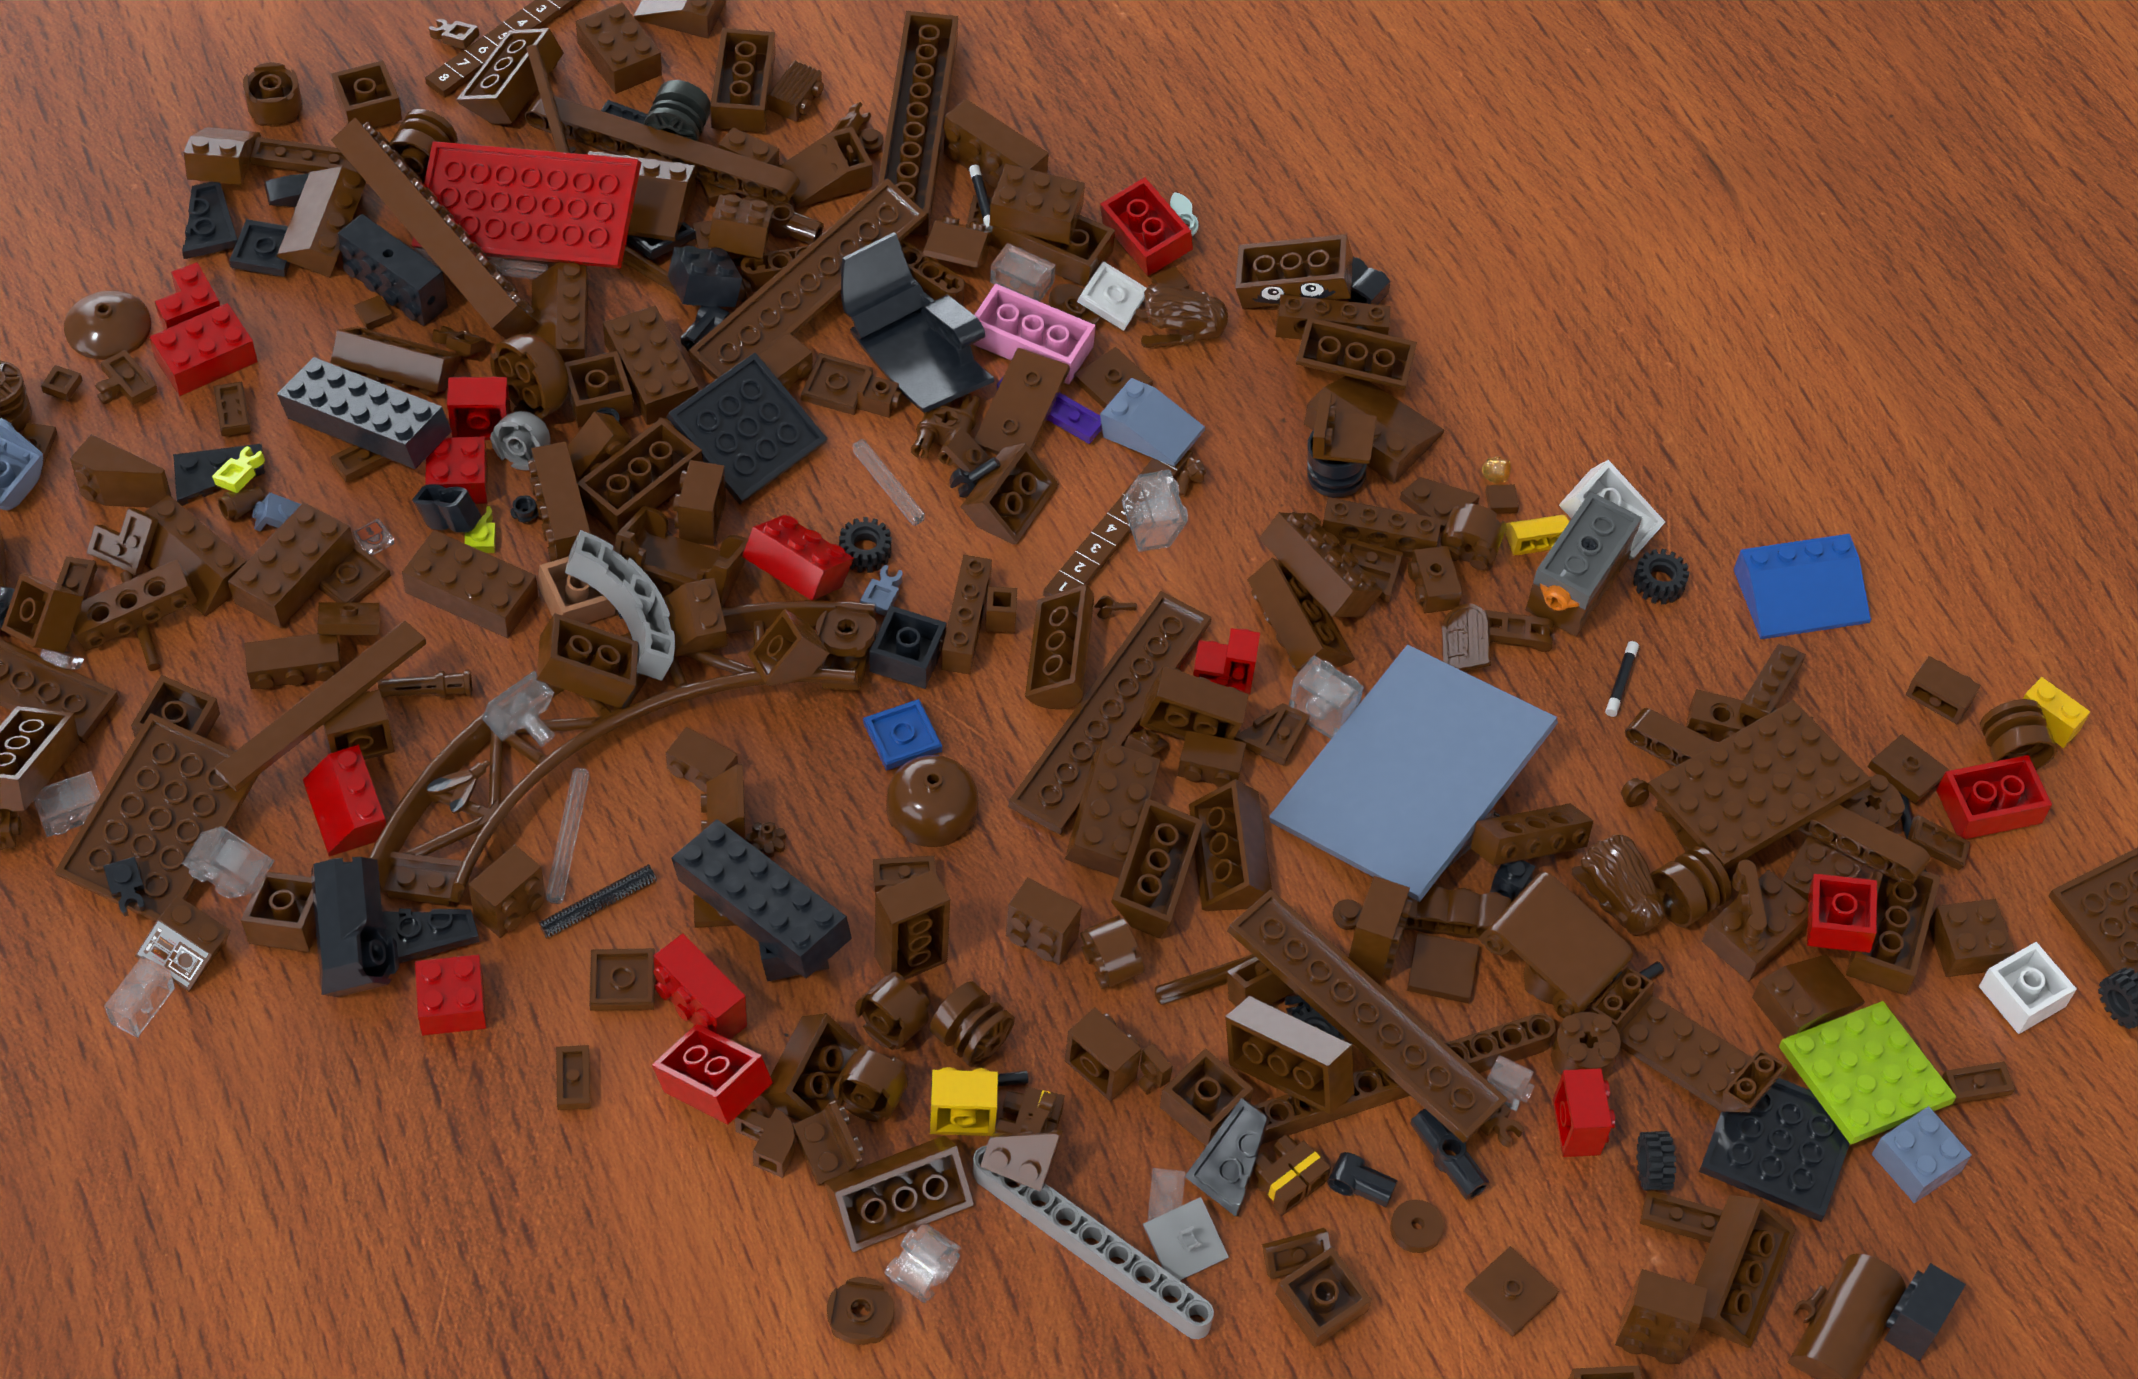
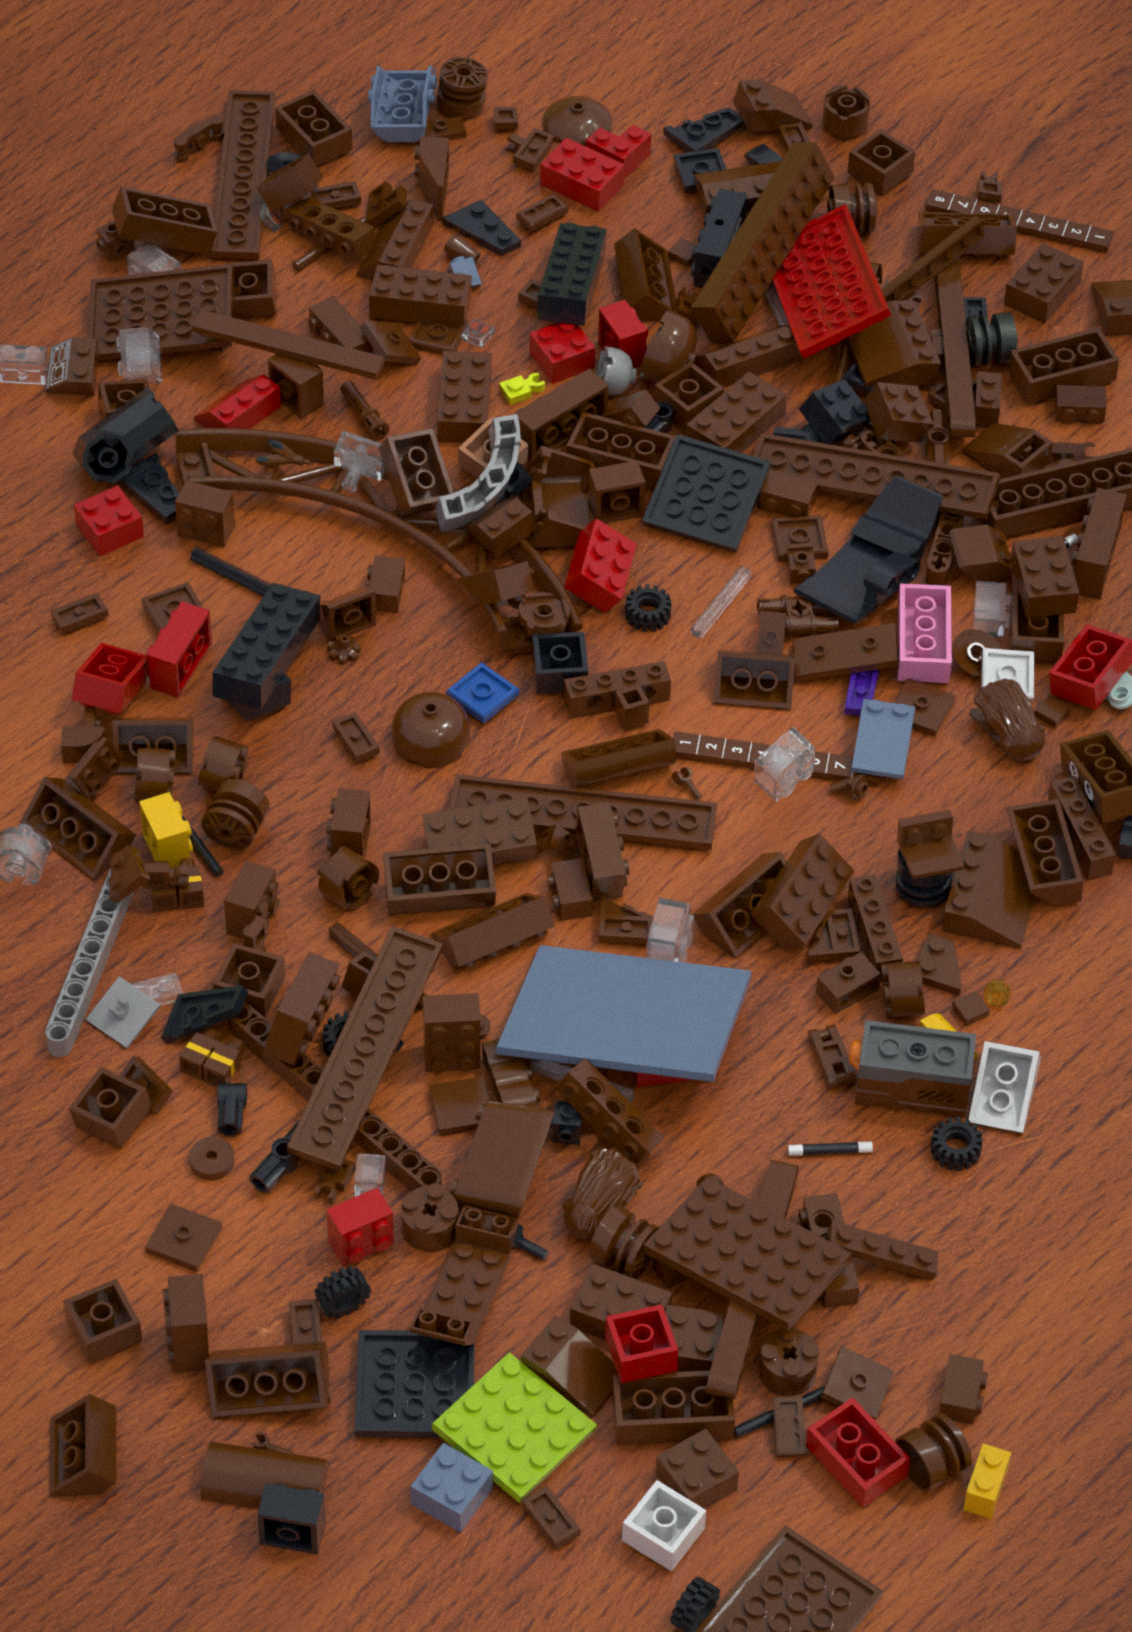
camera: 70 degrees right, 5 degrees down
(124, 881) = (102, 316): black plate -> none
(239, 472) = (479, 233): neon yellow plate -> none
(447, 508) = (518, 354): black brick -> none
(567, 836) = (281, 536): clear axle -> none
(883, 592) = (607, 634): sand blue plate -> none
(912, 925) = (286, 737): reddish brown brick -> none
(971, 478) = (753, 646): black bar -> none
(1231, 663) = (670, 867): red brick -> none
(1466, 638) = (799, 1023): window -> none
(1749, 901) = (616, 1276): reddish brown plate -> none
(1803, 586) = (1013, 1252): blue slope -> none

